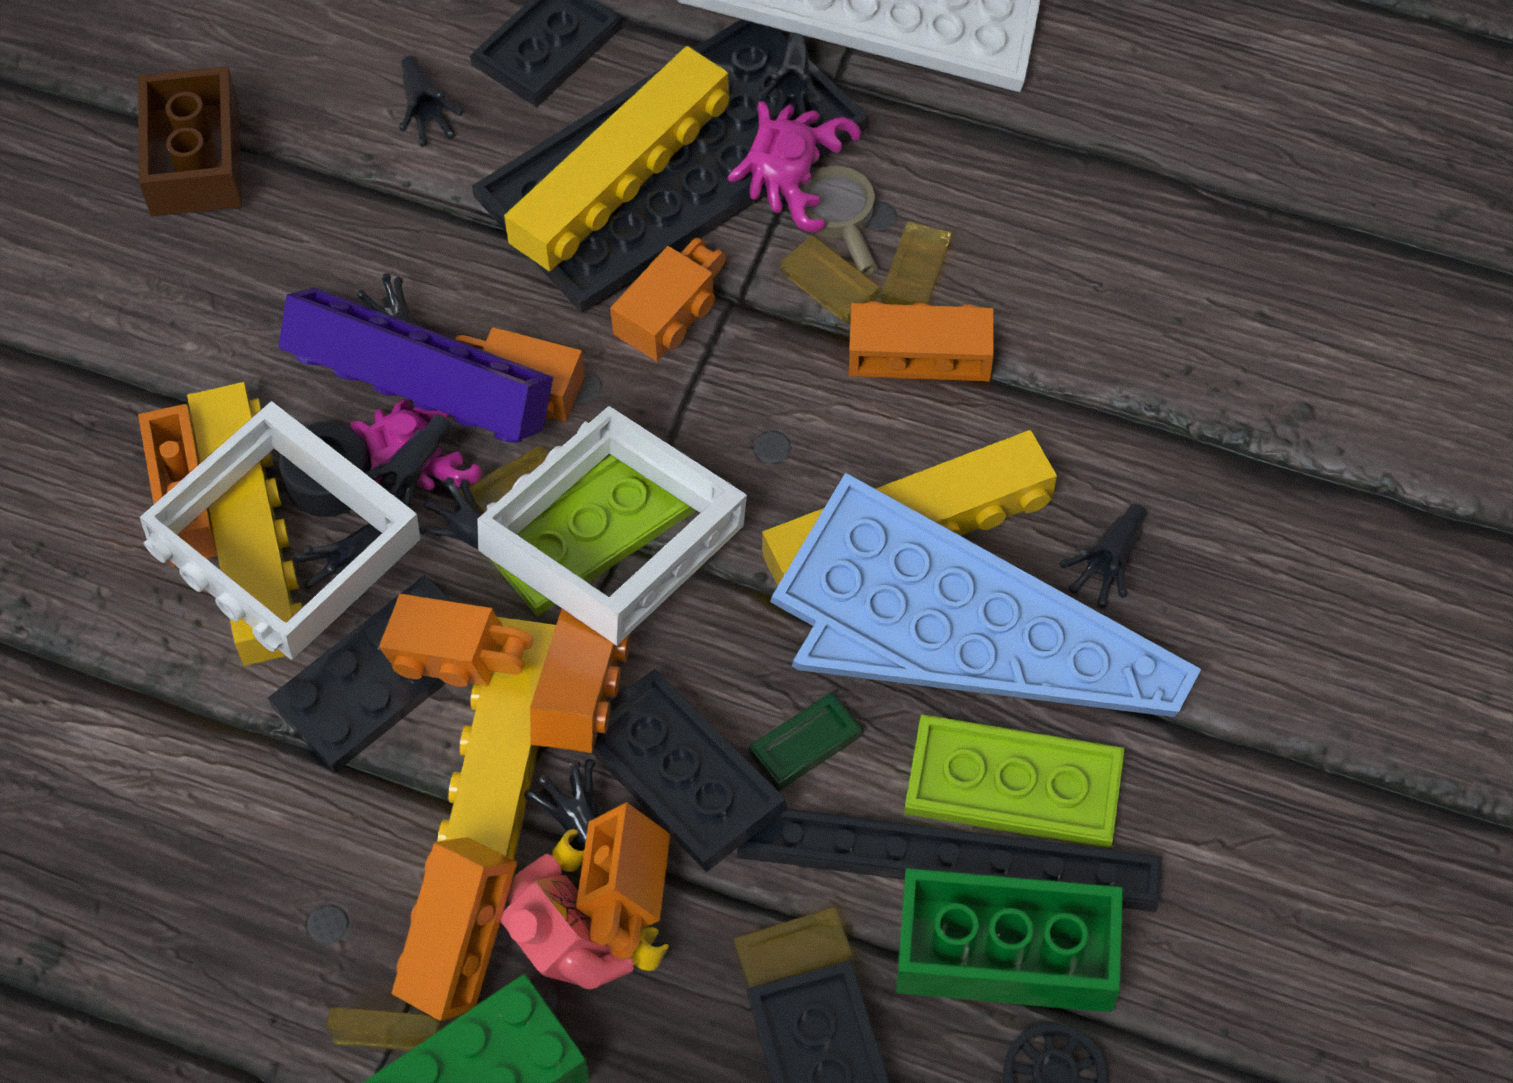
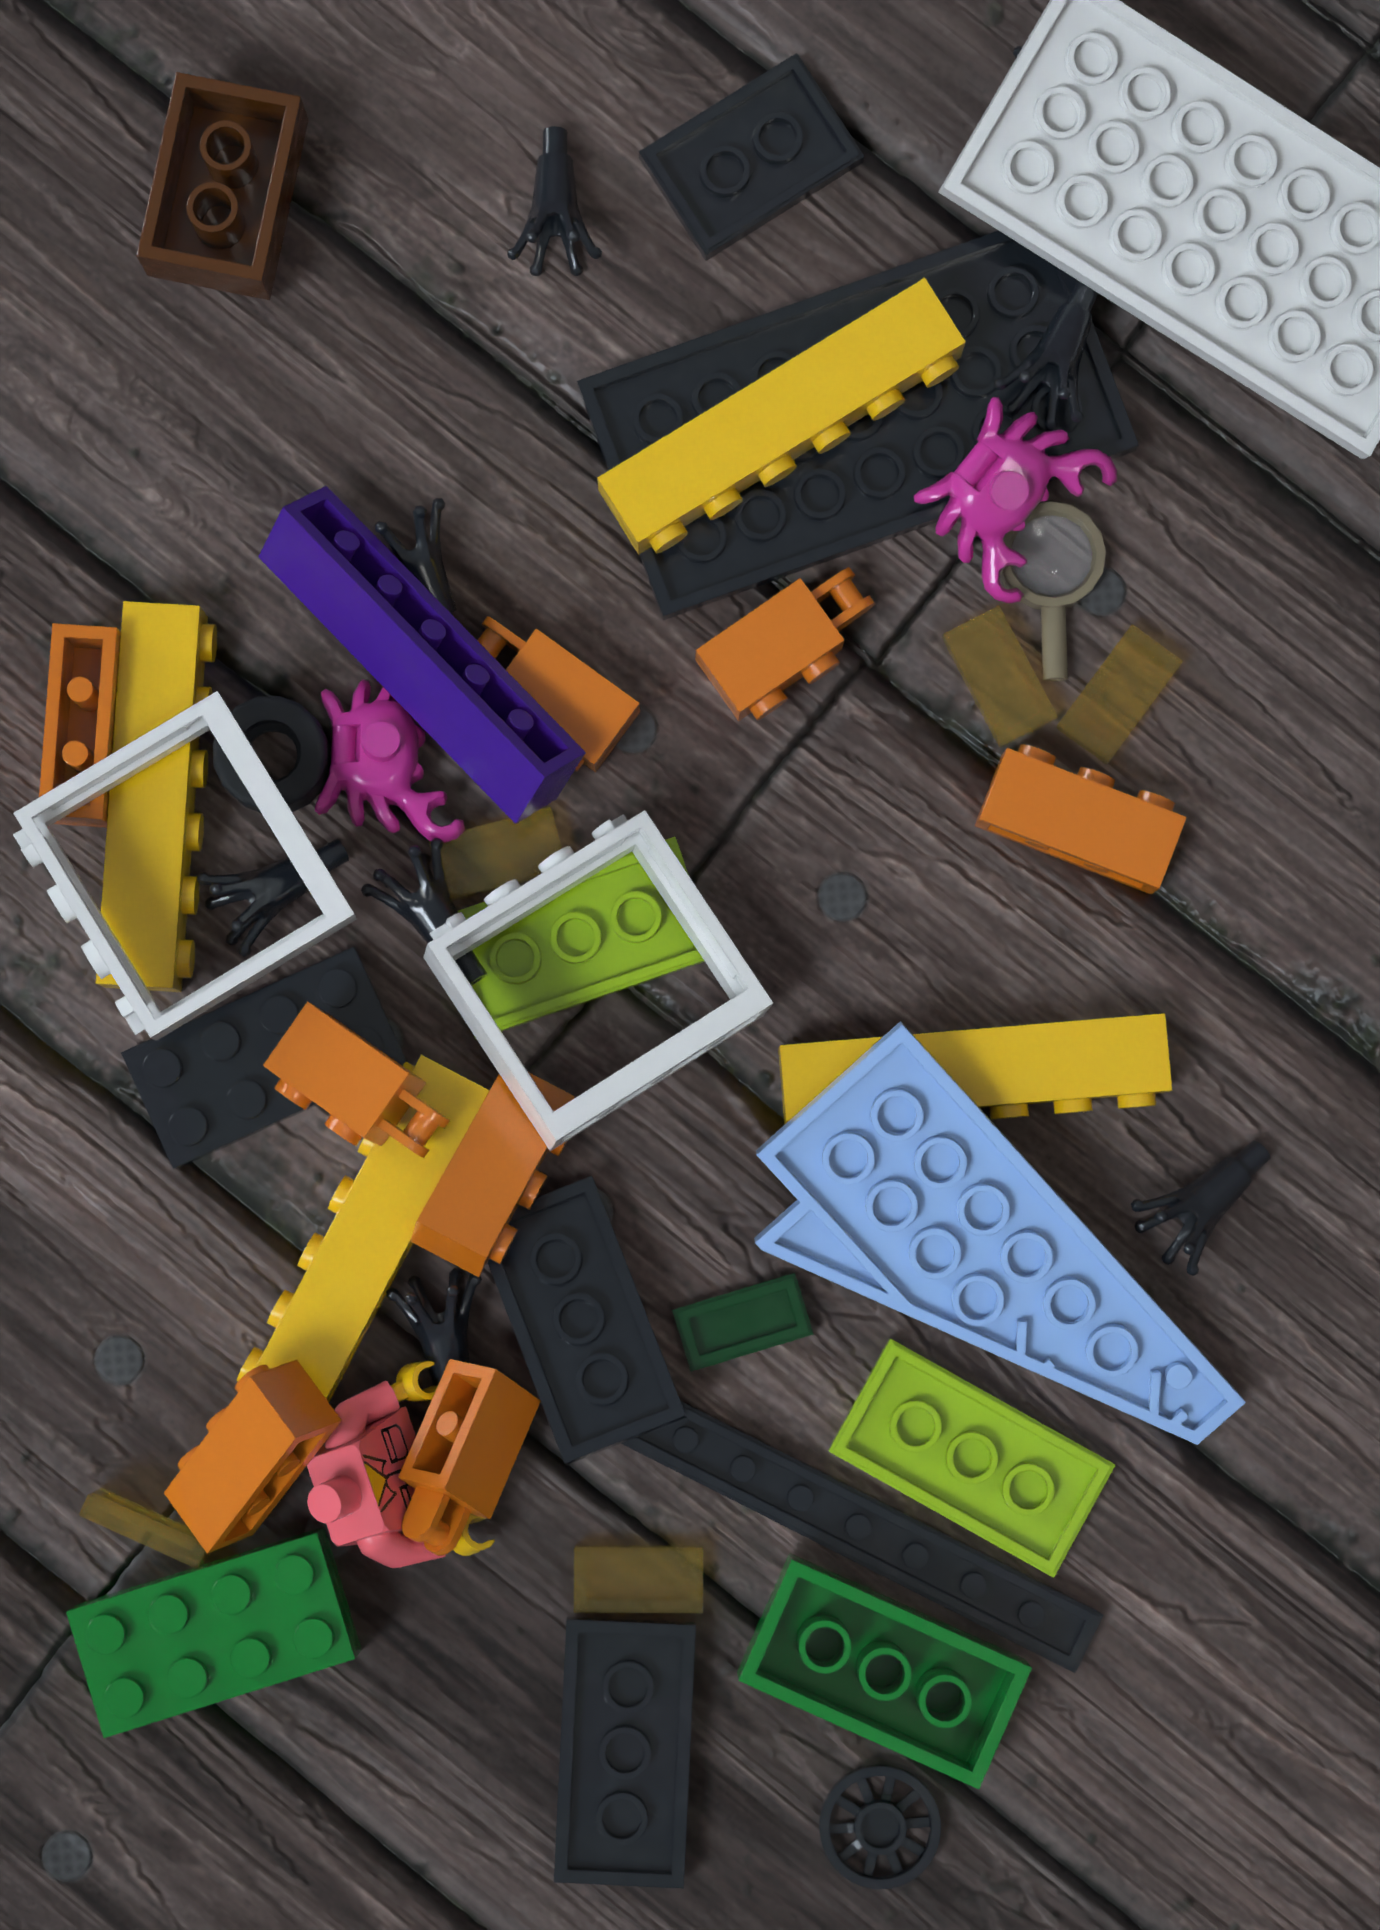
camera: 15 degrees right, 25 degrees up
(410, 460) = (367, 807): black piece -> none

